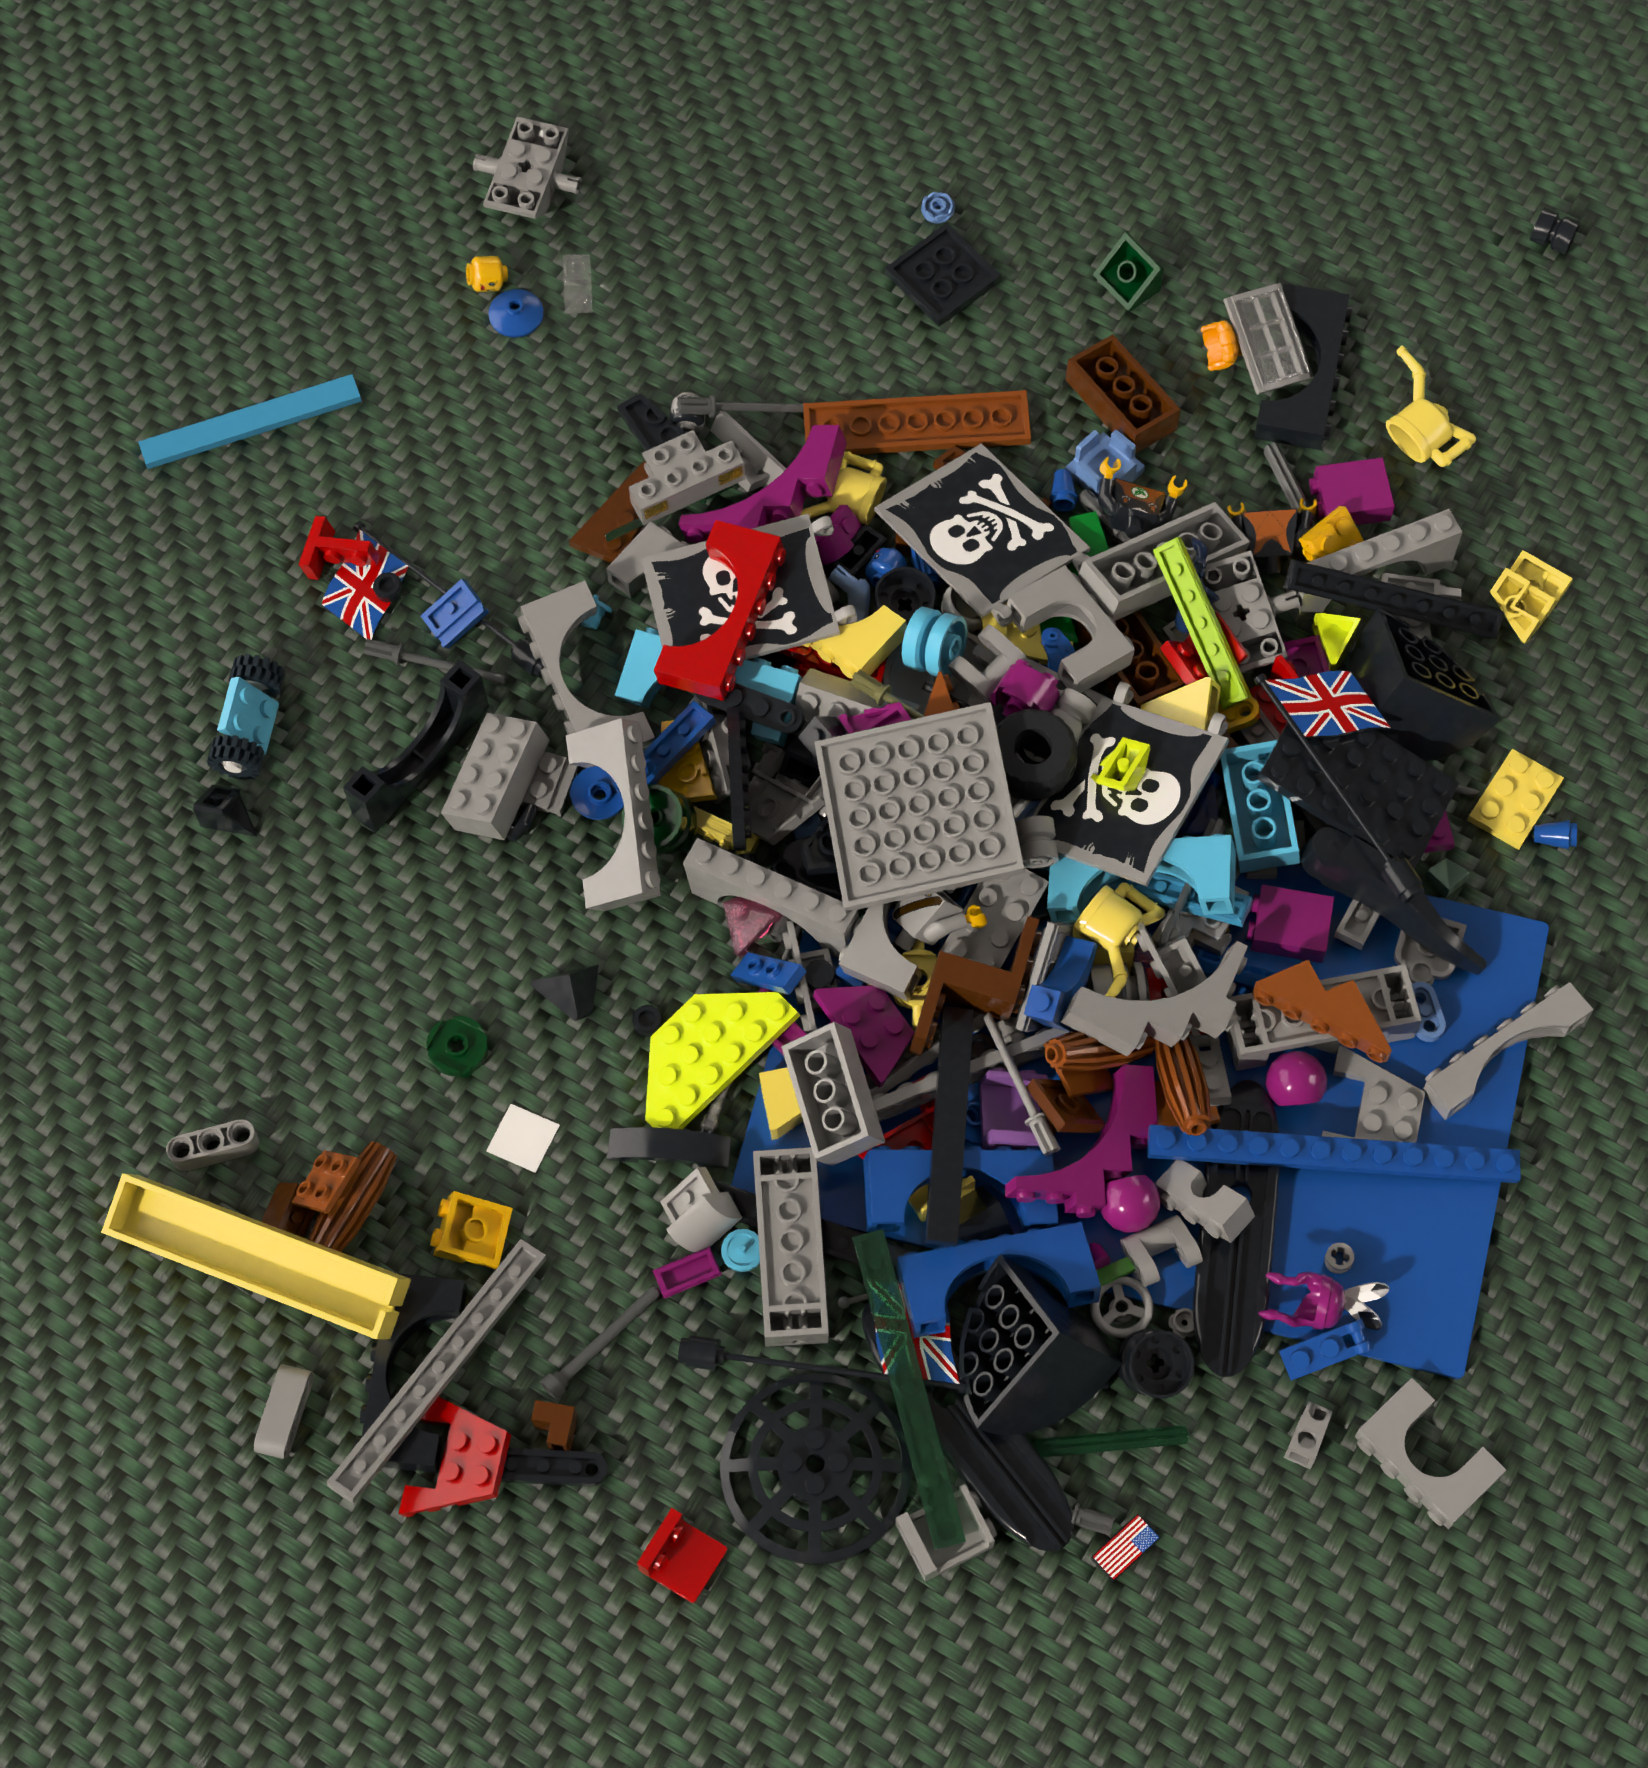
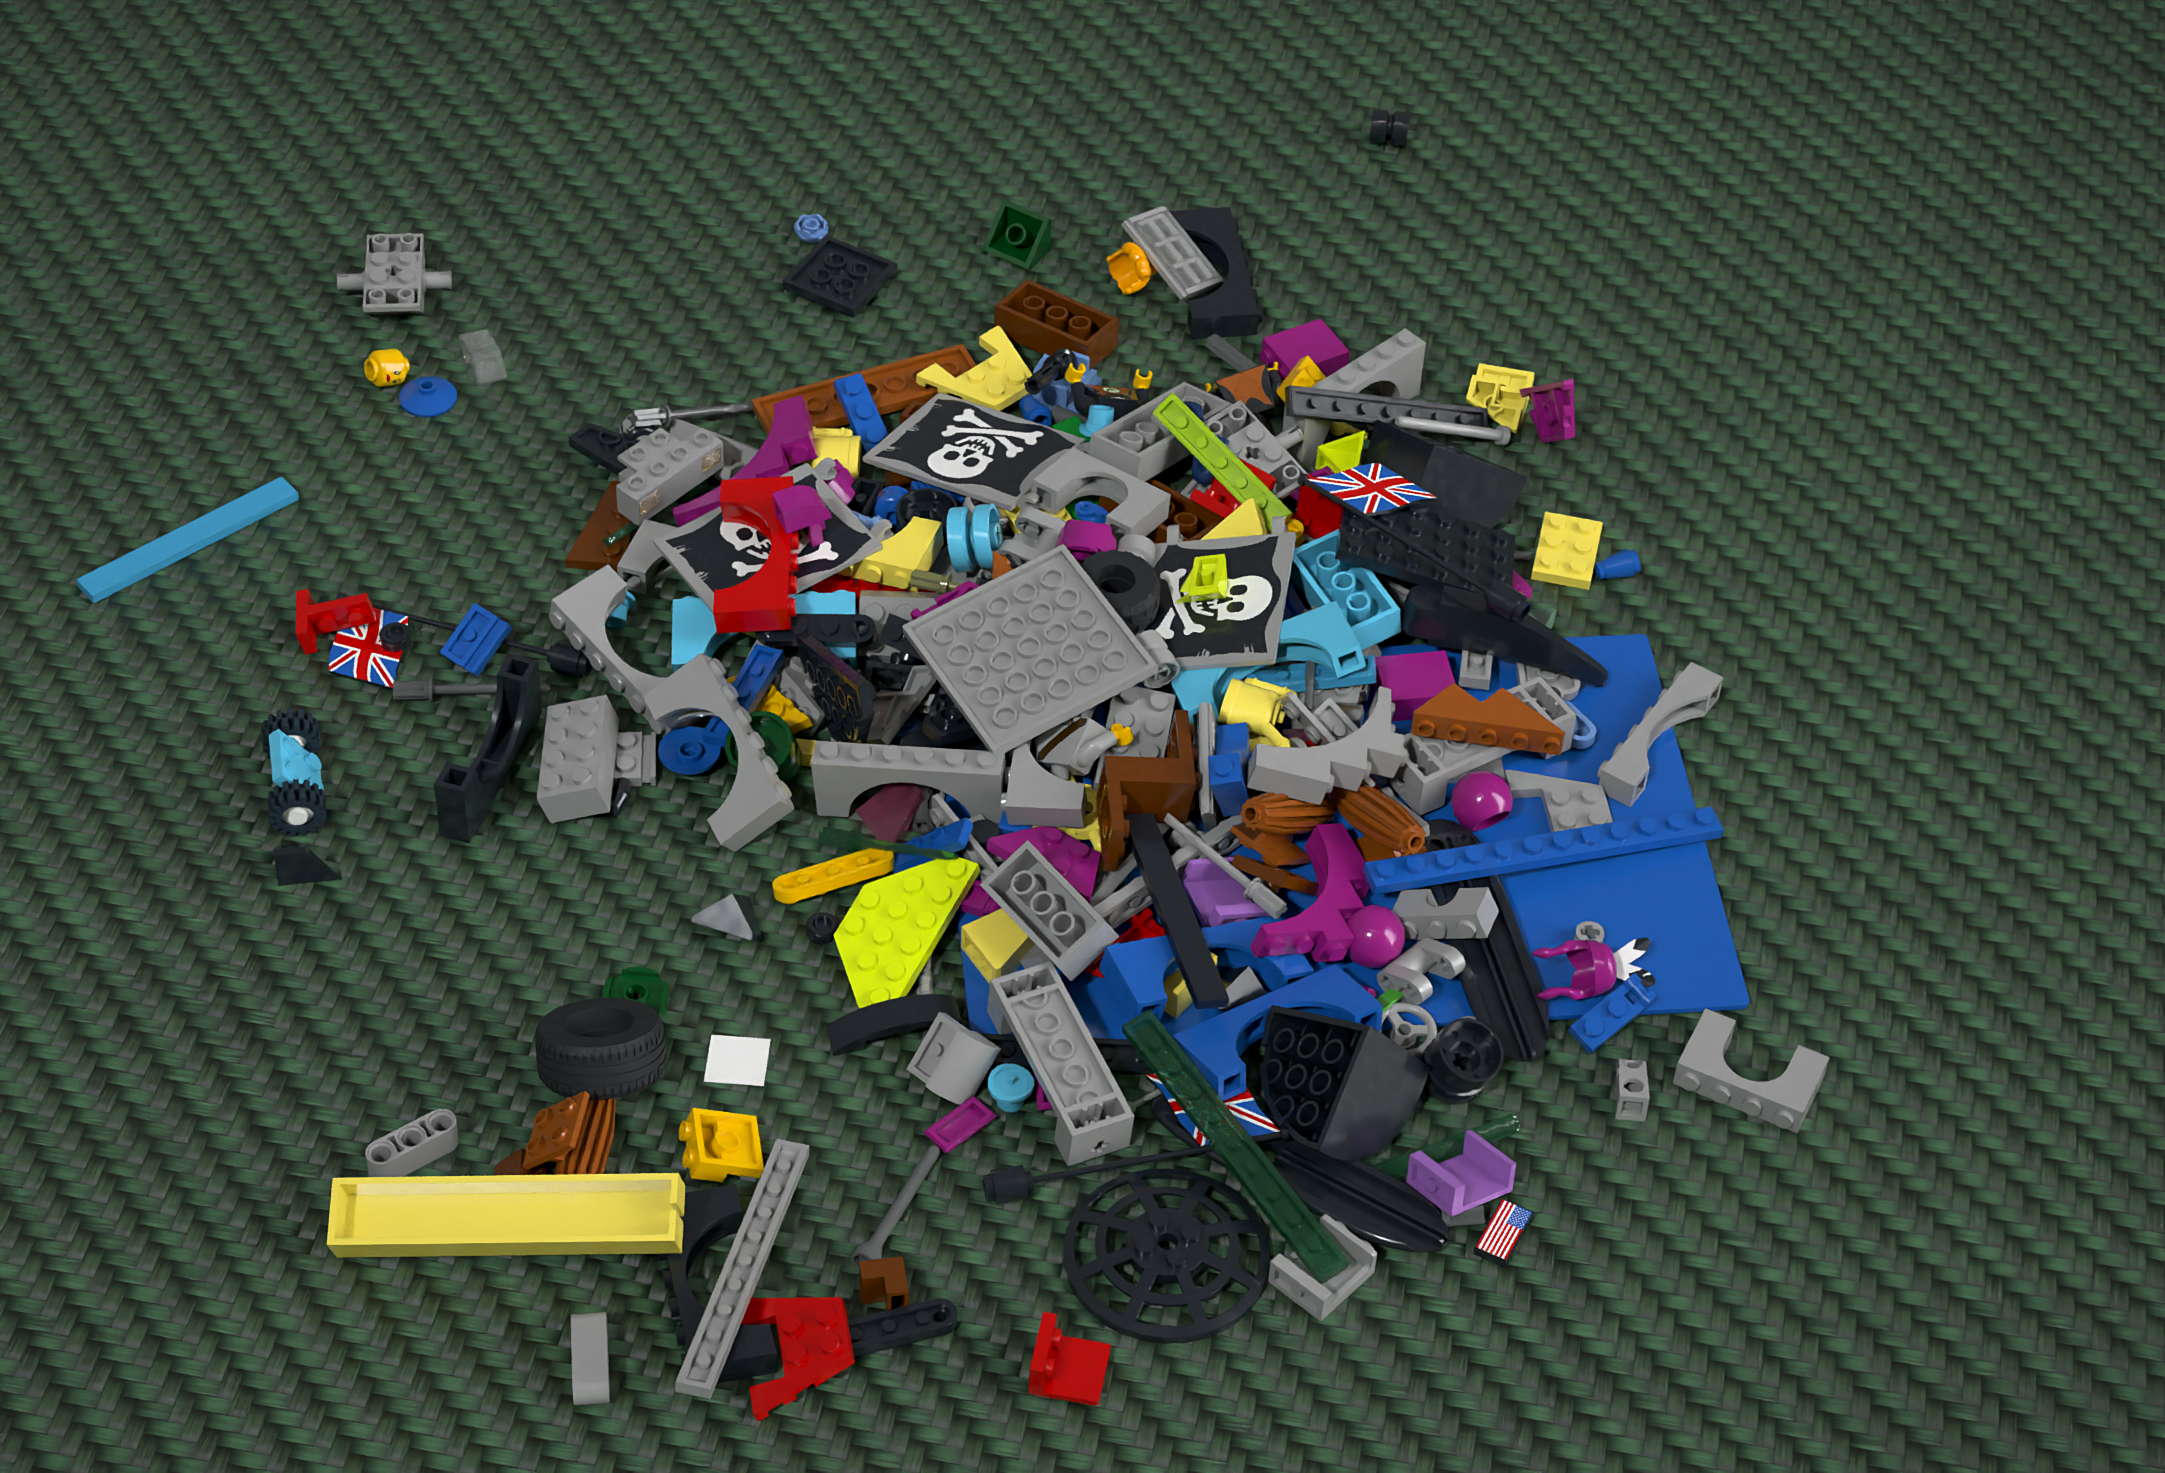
camera: 25 degrees left, 20 degrees down
(399, 1134) = (600, 1048): none -> black tyre
(677, 968) = (832, 875): none -> yellow plate
(707, 939) = (854, 841): none -> clear green piece
(771, 581) = (802, 509): none -> magenta brick
(897, 449) = (860, 411): none -> blue plate
(1034, 447) = (991, 383): none -> light yellow wing
(1094, 452) = (1053, 369): none -> black pin
(1108, 1484) = (1464, 1180): none -> medium lavender panel
(1109, 533) = (1098, 418): none -> medium azure piece
(1425, 425) = (1344, 291): light yellow piece -> none
(1506, 643) = (1500, 435): none -> light grey bar
(1562, 639) = (1552, 409): none -> magenta wing

